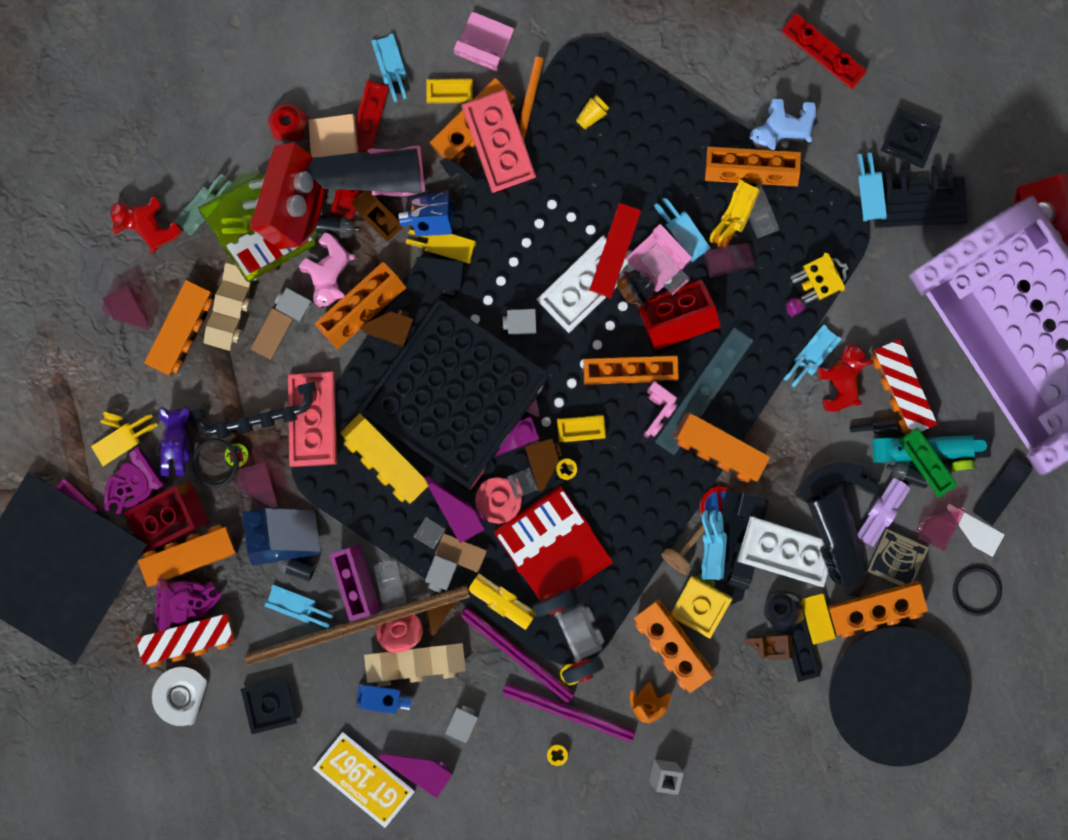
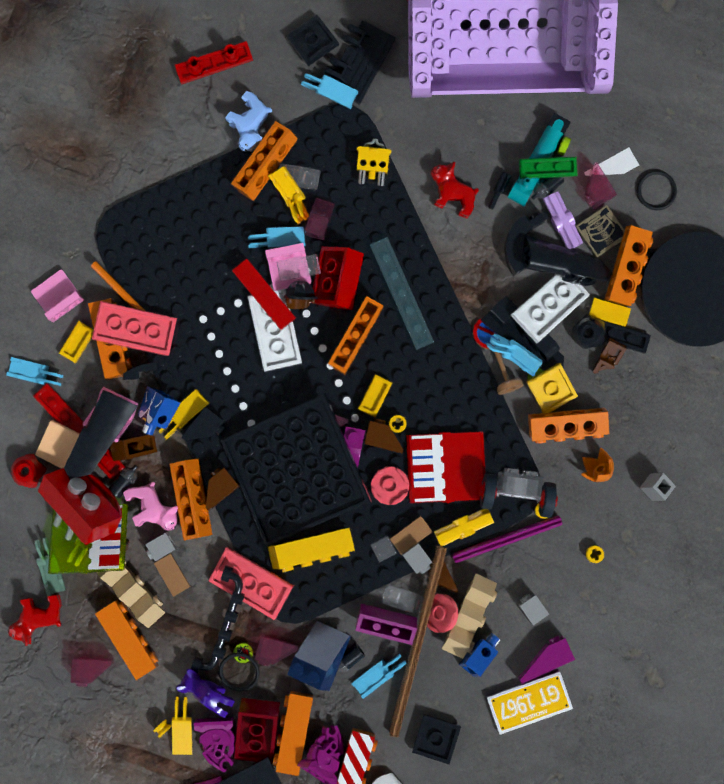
camera: 60 degrees left, 0 degrees up
(458, 512) = (382, 519): magenta slope -> none
(520, 322) = (273, 392): light grey brick -> none
(522, 483) = (388, 461): clear tile -> none
(568, 712) = (569, 528): magenta axle -> none
(592, 112) = (155, 250): yellow cone -> none
(660, 395) = (387, 325): bright pink bracket -> none
(721, 447) = (449, 305): orange brick -> none
(795, 306) = (381, 193): magenta hinge -> none
(814, 353) = (422, 200): medium azure arm -> none
(903, 387) = (484, 152): brick -> none
(1002, 491) = (598, 129): black tile -> none

